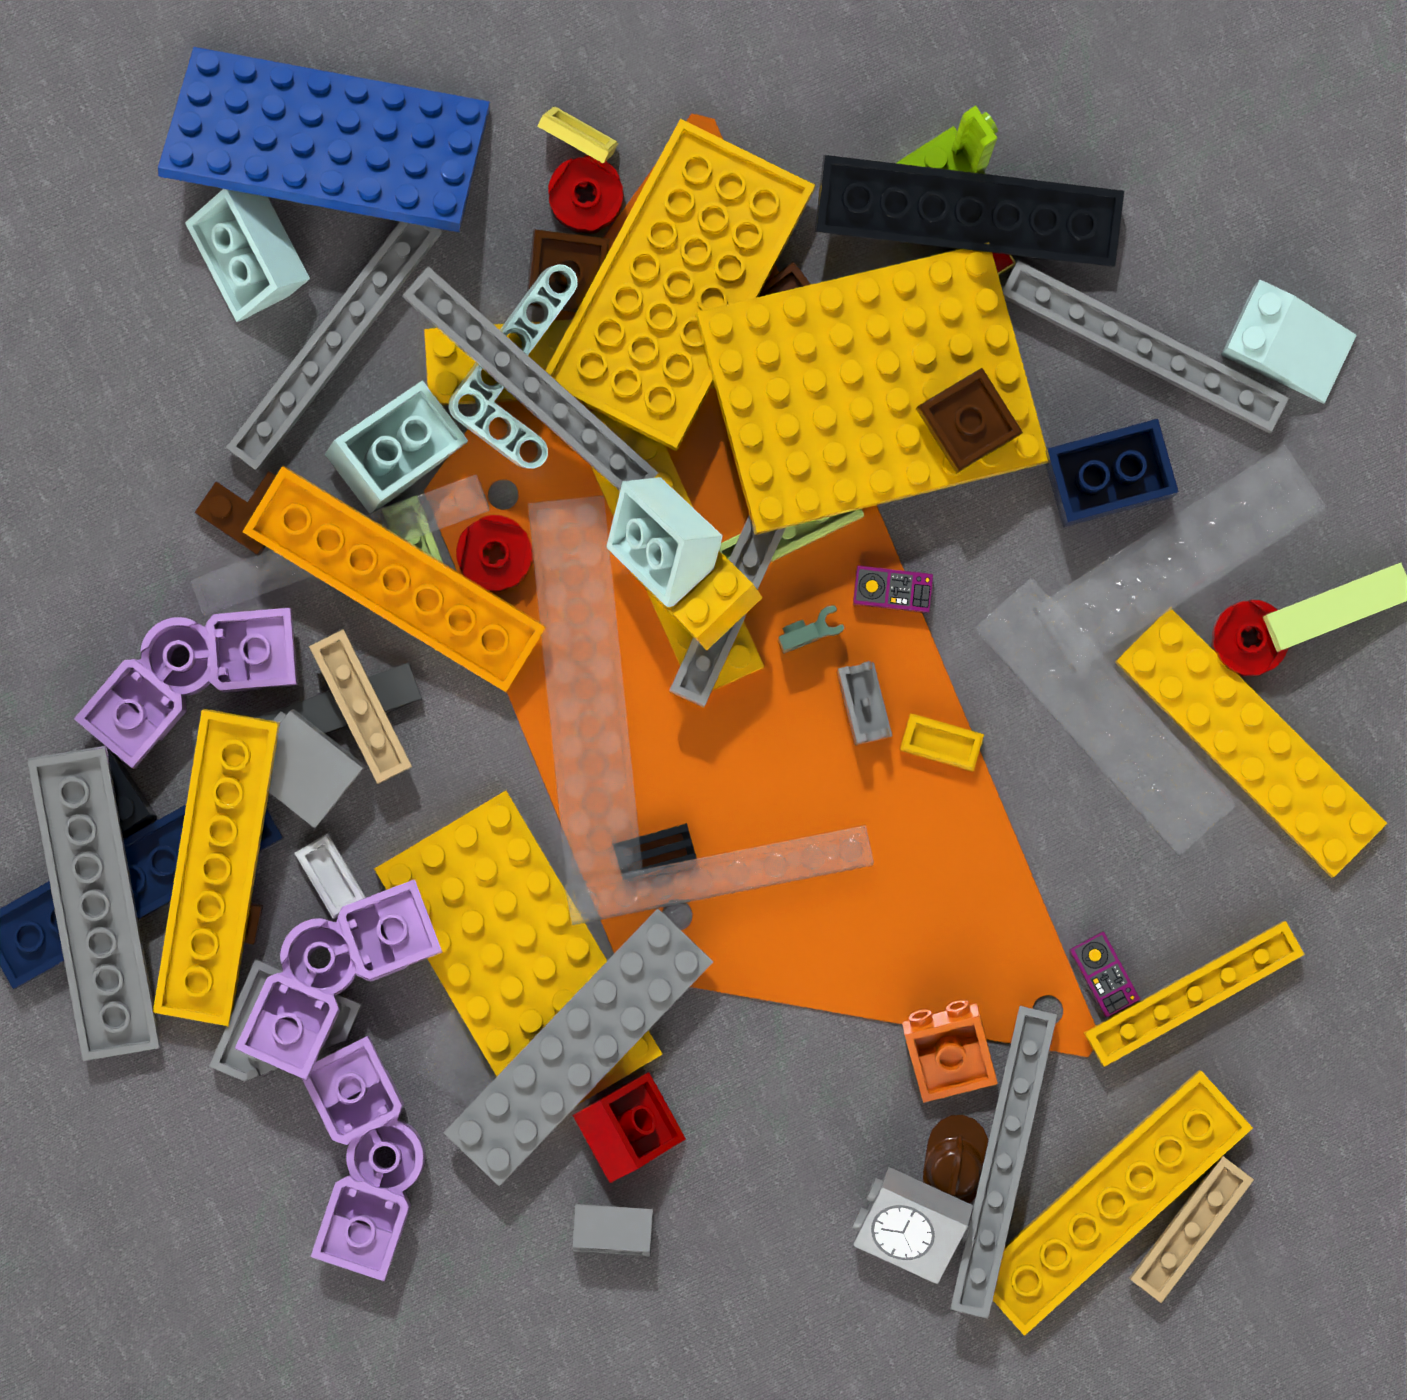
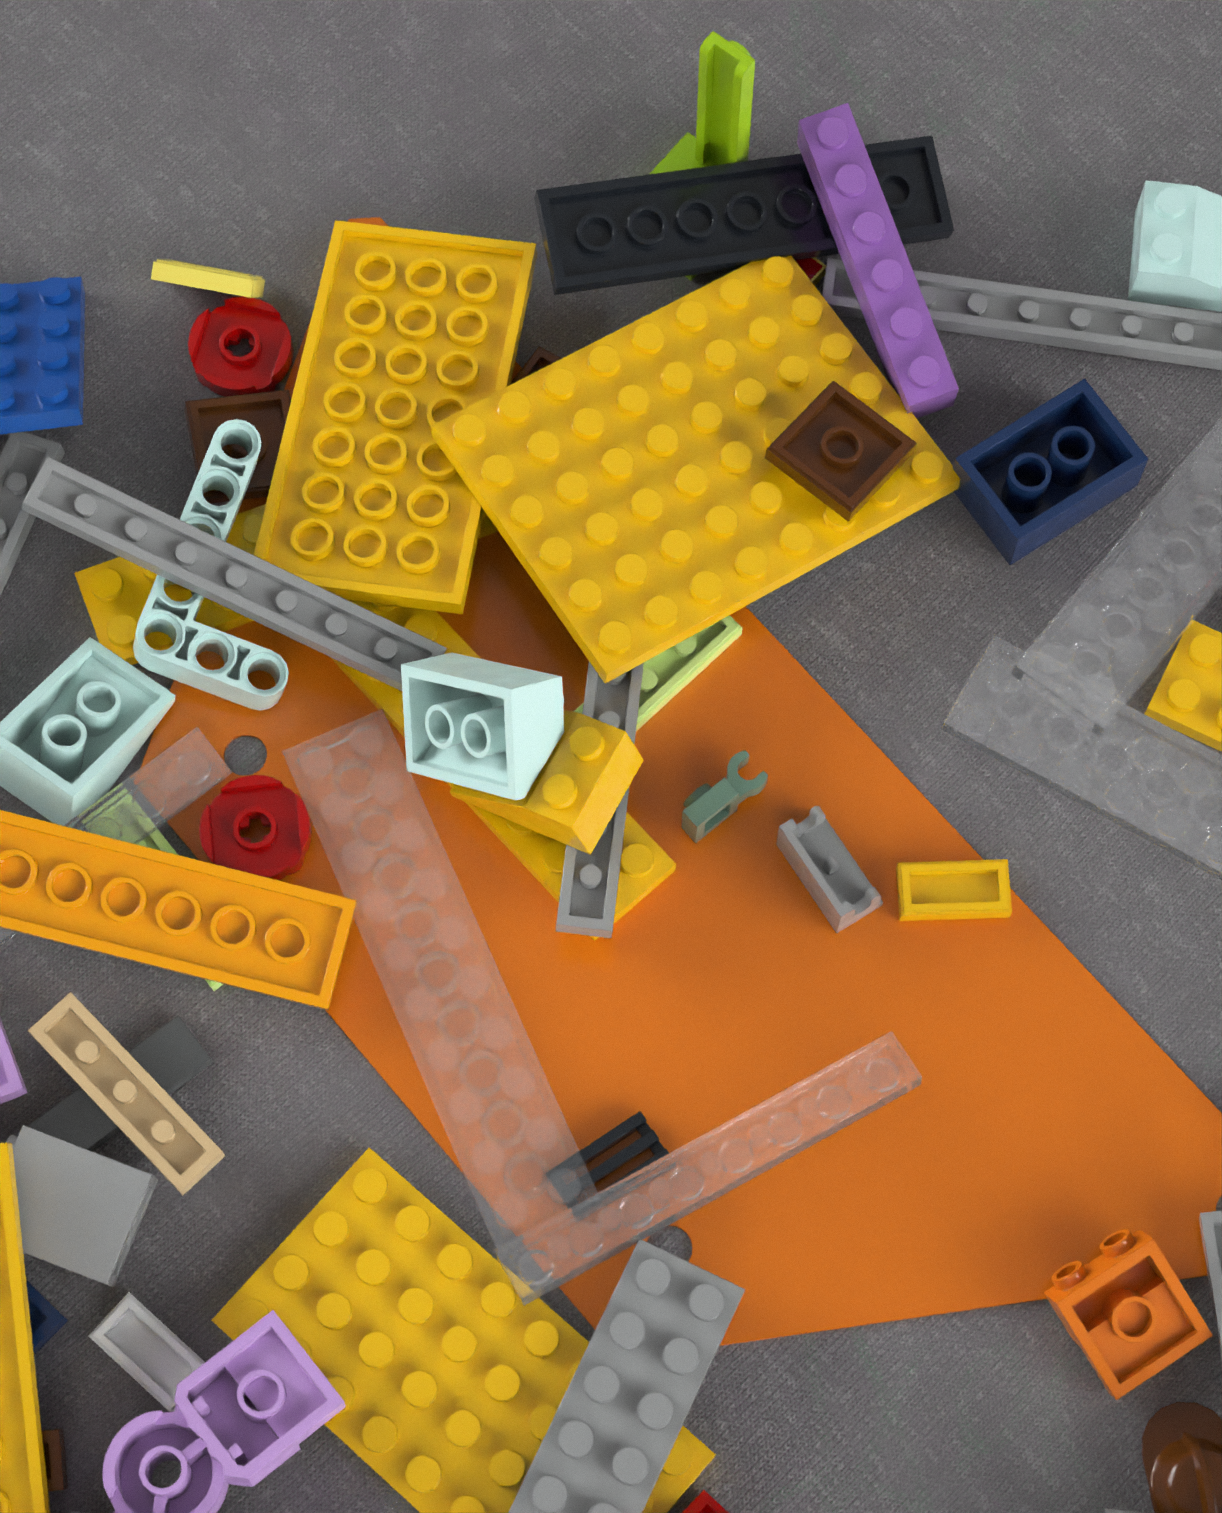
camera: 15 degrees left, 15 degrees down
(893, 589) = (814, 711): tile -> none
(1045, 282) = (876, 261): none -> medium lavender brick

